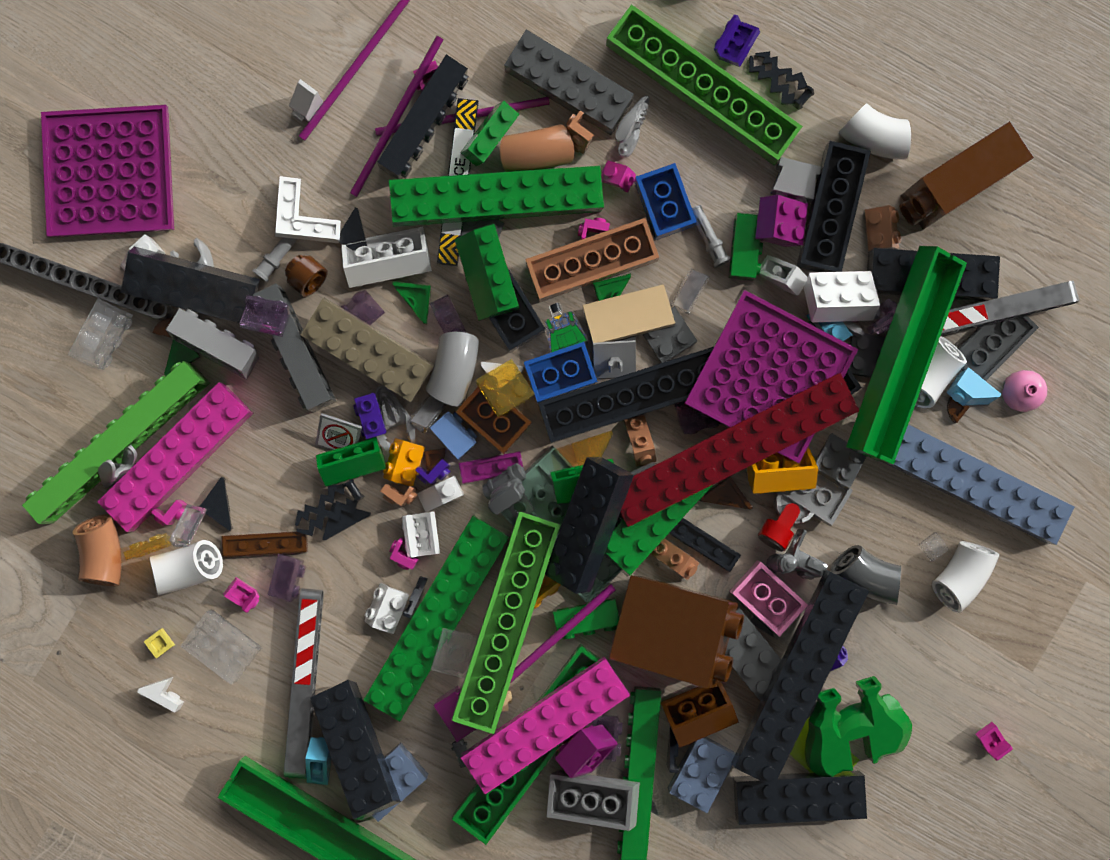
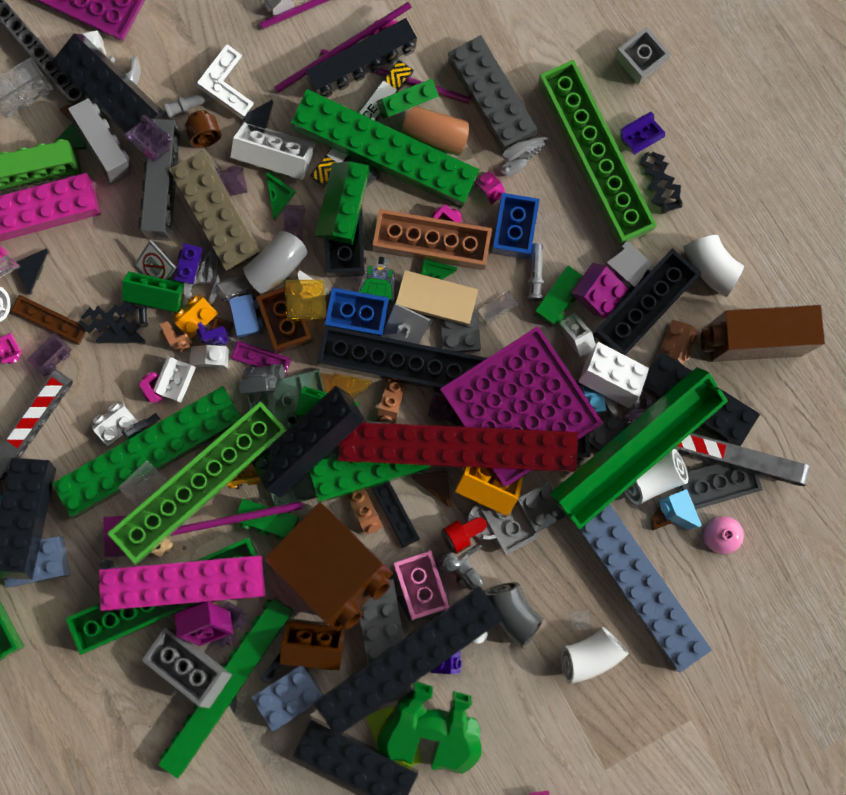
camera: 30 degrees right, 5 degrees down
(580, 136) = (476, 138): nougat bracket -> none

